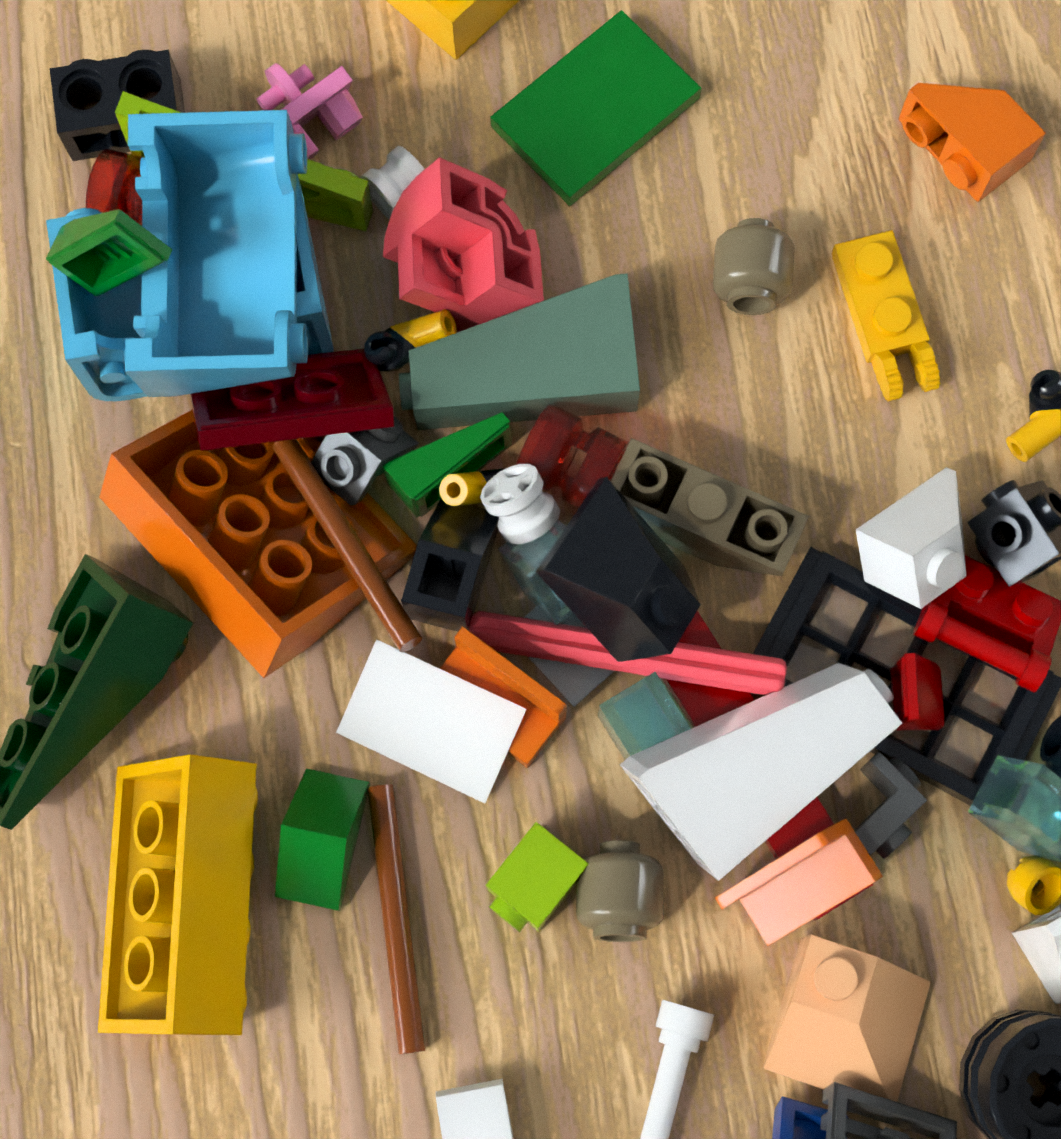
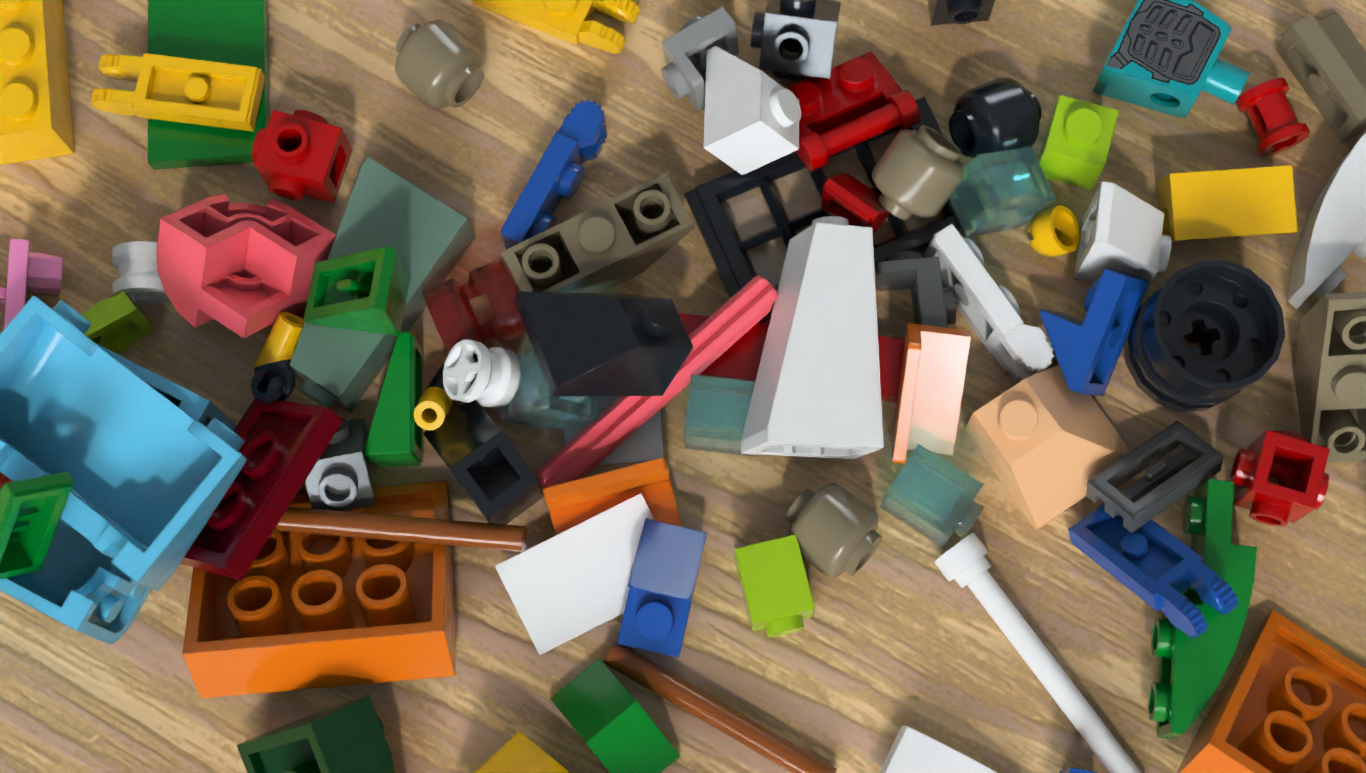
camera: 50 degrees left, 0 degrees up
(463, 786) = (661, 587): none -> blue slope
(507, 357) = (359, 292): none -> green slope
(567, 95) = (182, 90): none -> yellow hinge
(588, 224) = (301, 156): none -> red brick
(716, 957) = (933, 497): none -> clear light blue brick
(739, 431) = (557, 173): none -> blue hinge
(920, 877) = (989, 307): none -> white hinge
(933, 452) = (687, 53): none -> light grey bracket
(960, 994) = (1093, 346): none -> blue slope
(985, 725) = (918, 173): none -> dark tan head

